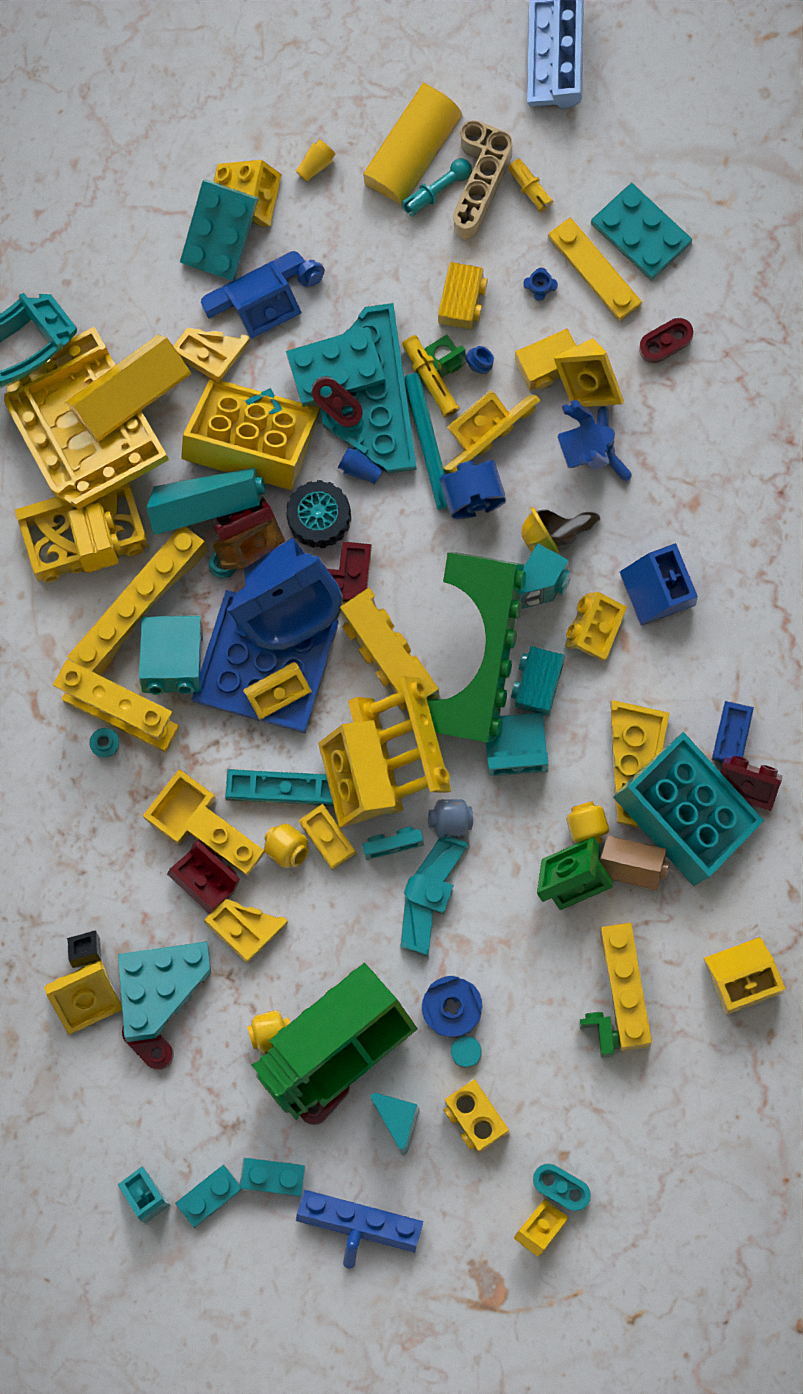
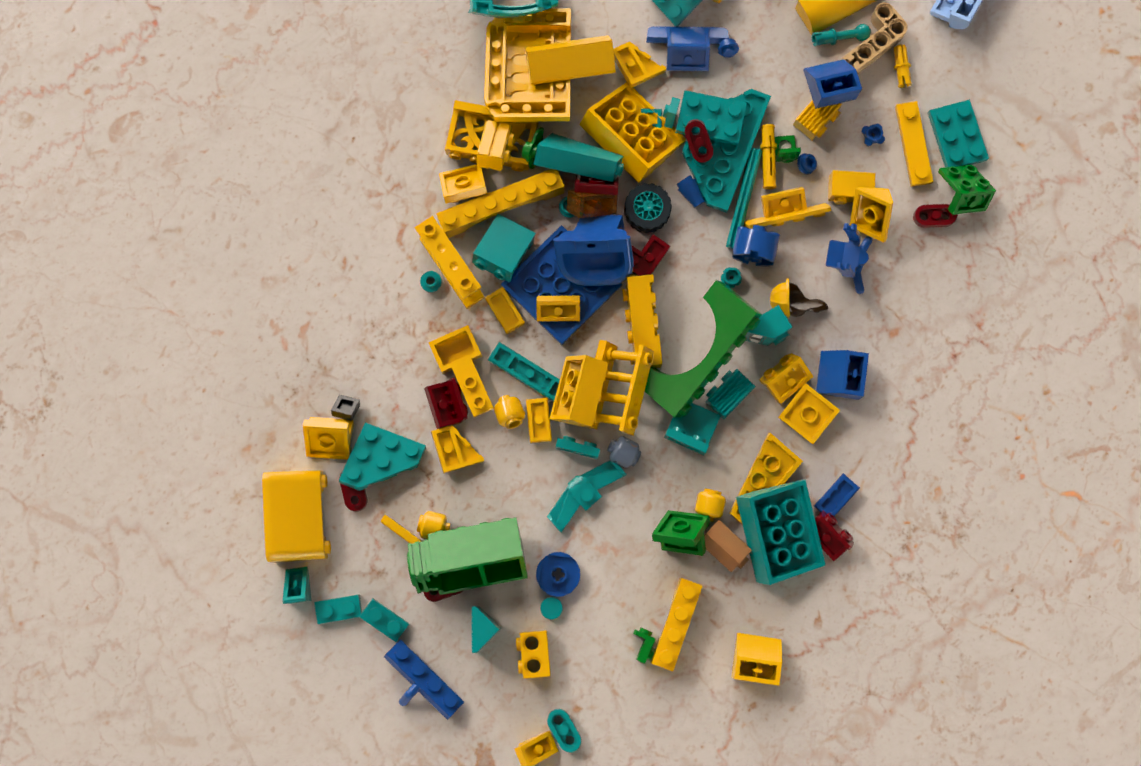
camera: 20 degrees right, 5 degrees up
(79, 604) = (462, 183): none -> yellow plate
(96, 1111) = (294, 516): none -> yellow windscreen
(139, 519) = (530, 148): none -> green plate
(213, 729) = (504, 310): none -> yellow tile
(229, 1058) = (399, 529): none -> yellow tile
(283, 385) = (670, 112): none -> teal plate
(458, 249) = (832, 83): none -> blue slope
(464, 535) = (731, 272): none -> teal plate
(645, 653) = (809, 413): none -> yellow plate
(690, 285) = (971, 189): none -> green bracket

